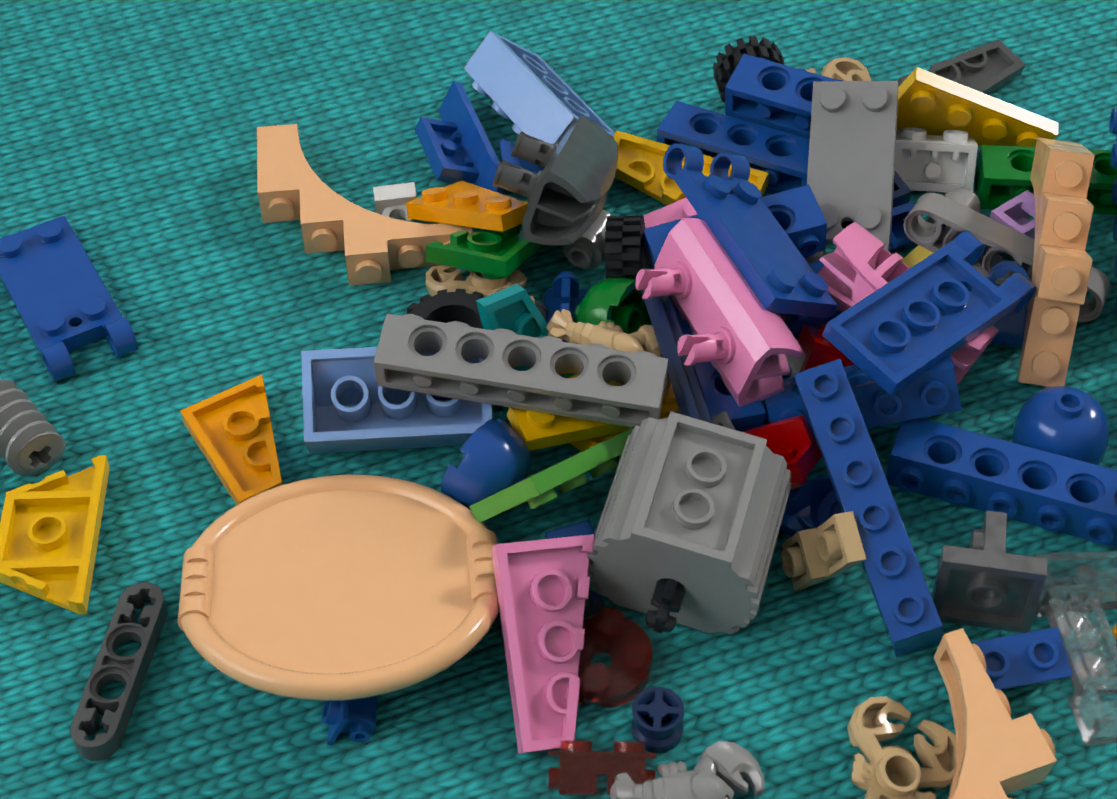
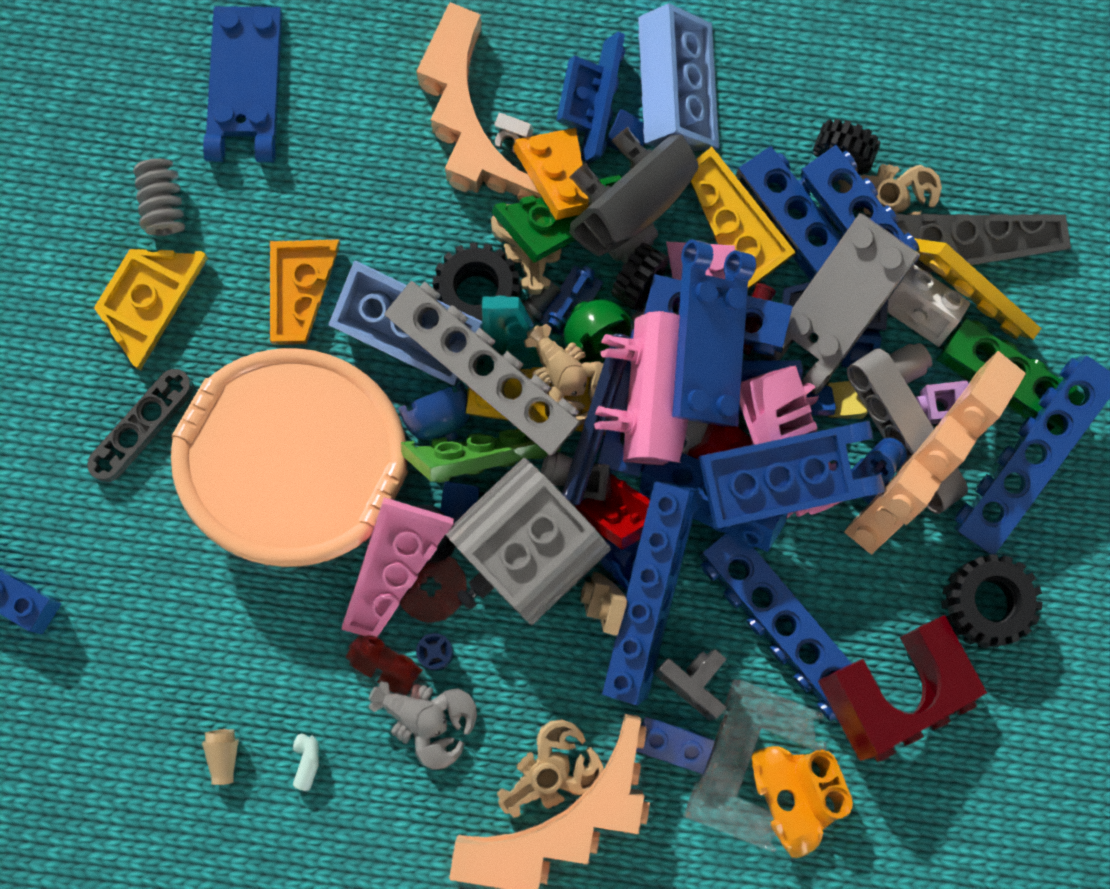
camera: 25 degrees right, 30 degrees up
(1064, 424) = (839, 591): blue cylinder -> none

